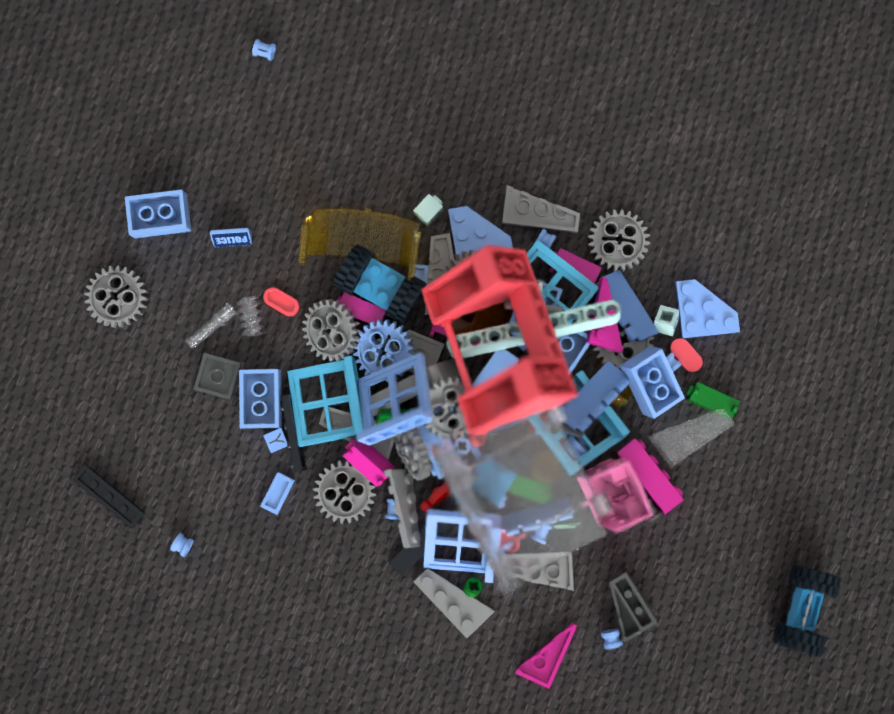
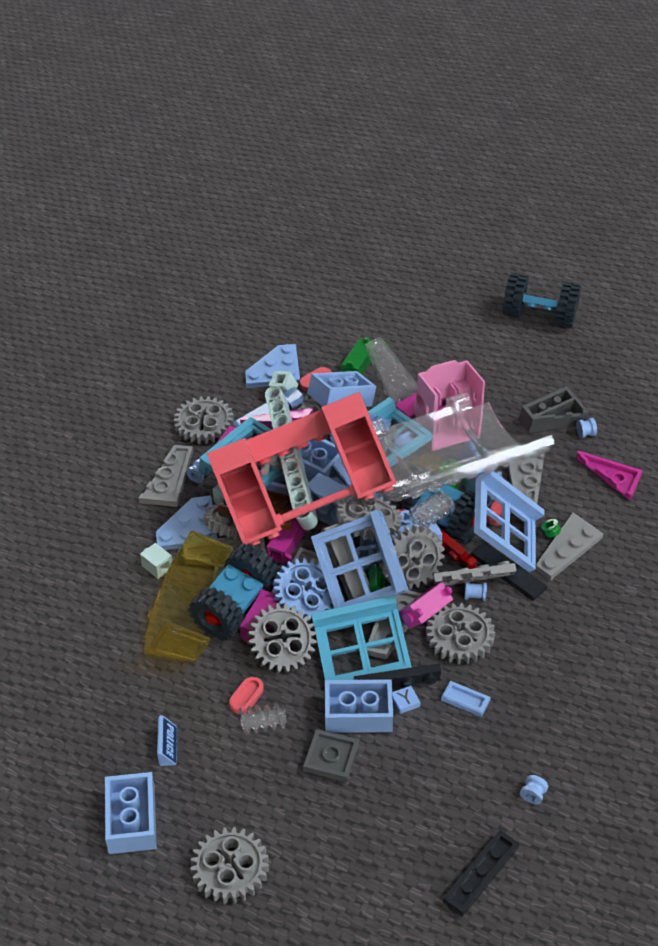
camera: 90 degrees left, 40 degrees down
(218, 319) = (266, 756): clear pin -> none

